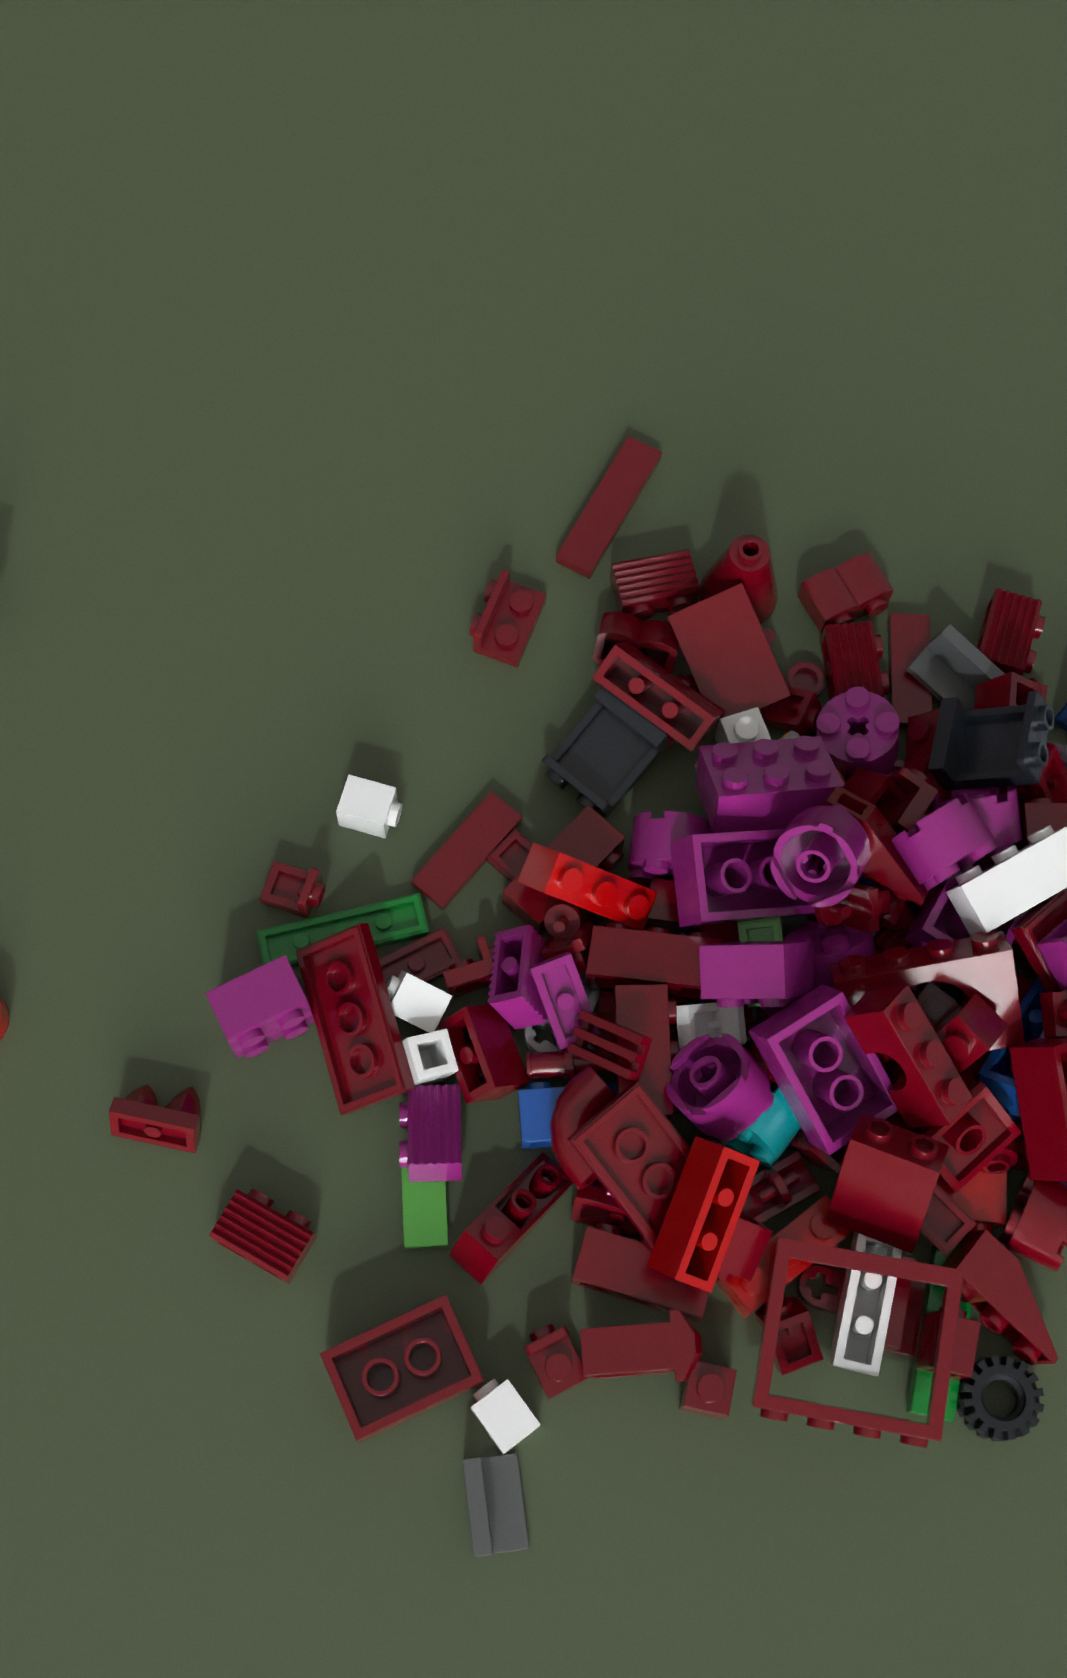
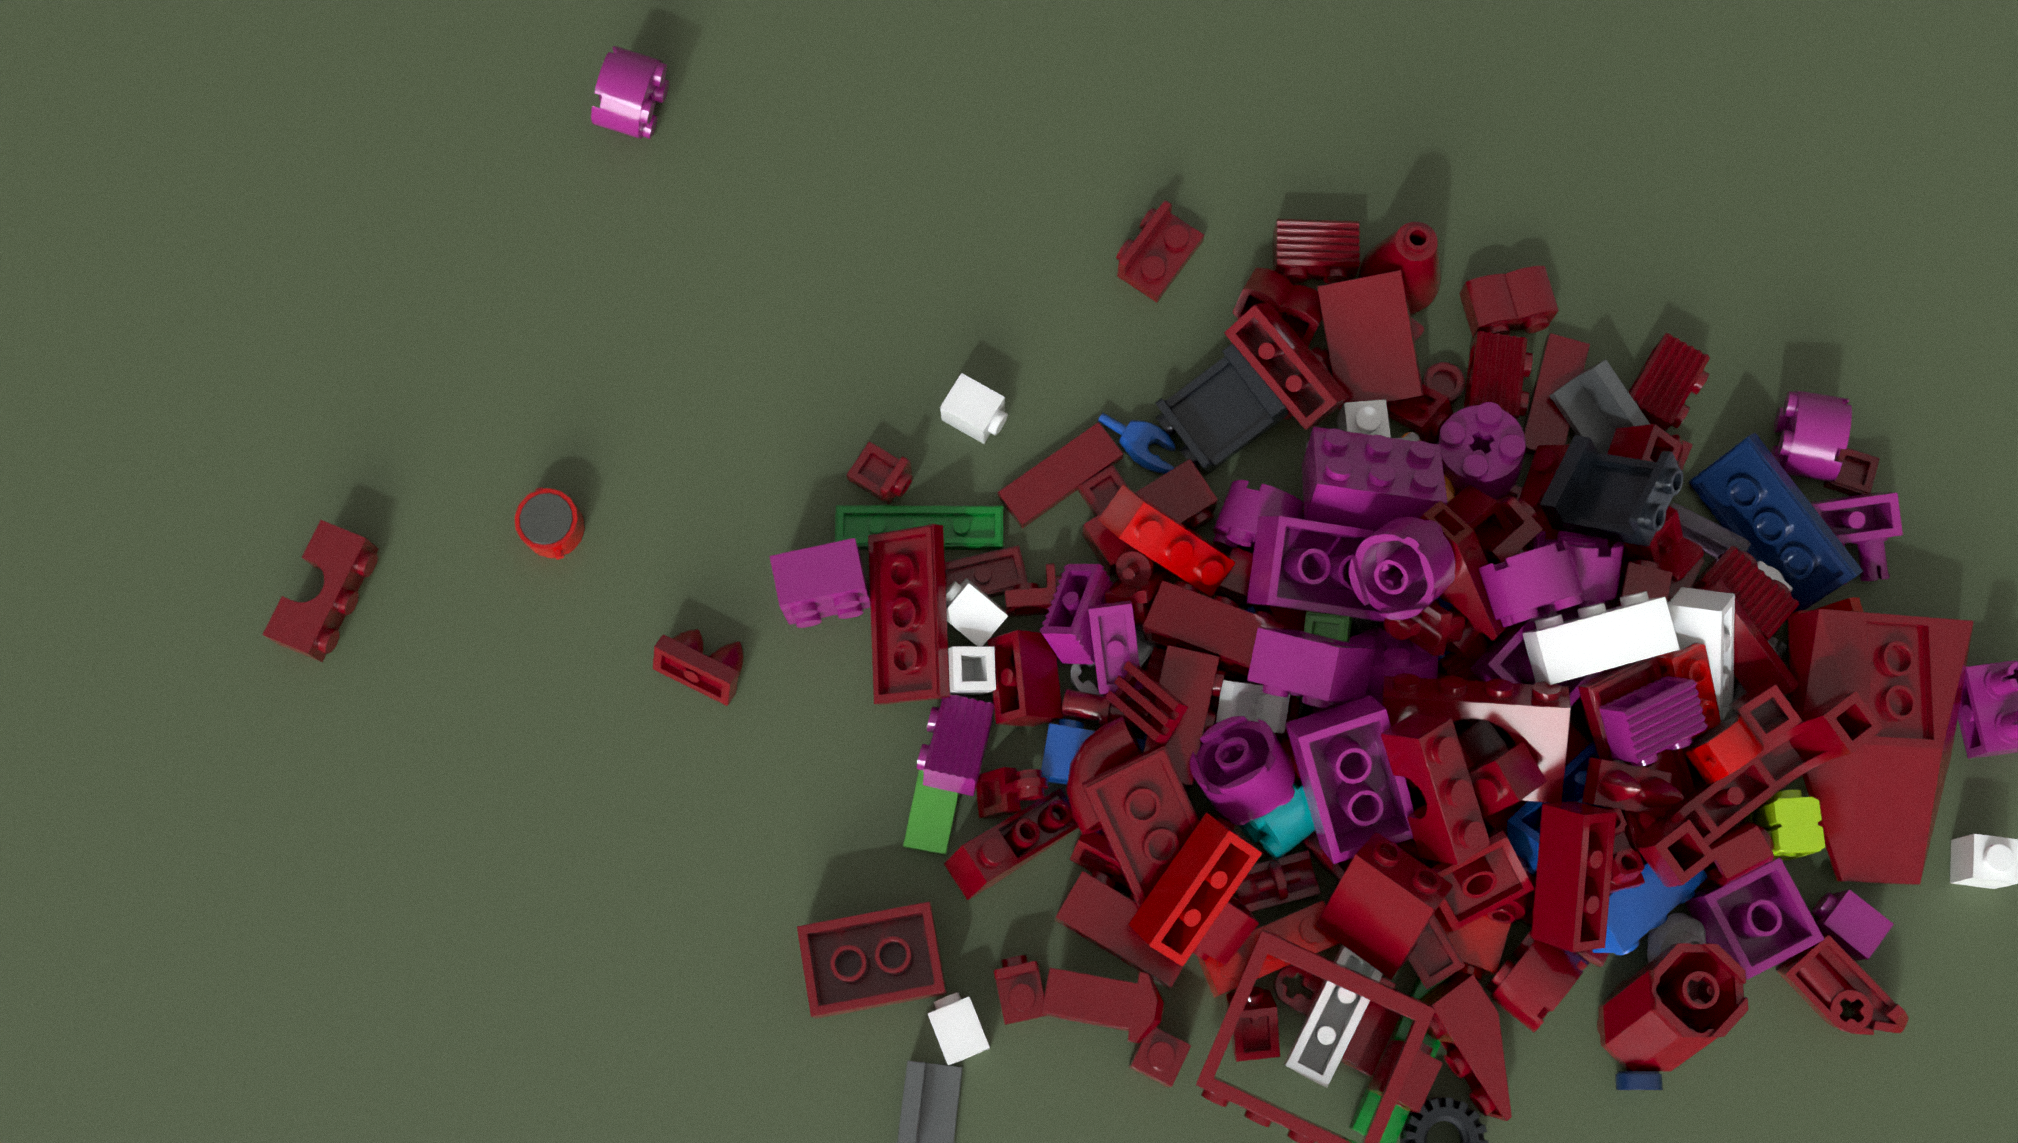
camera: 20 degrees right, 5 degrees up
(264, 1235) = (772, 800): dark red brick -> none
(488, 1166) = (1003, 788): none -> dark red plate
(532, 800) = (1137, 439): none -> blue hand
(608, 507) = (1290, 158): dark red tile -> none

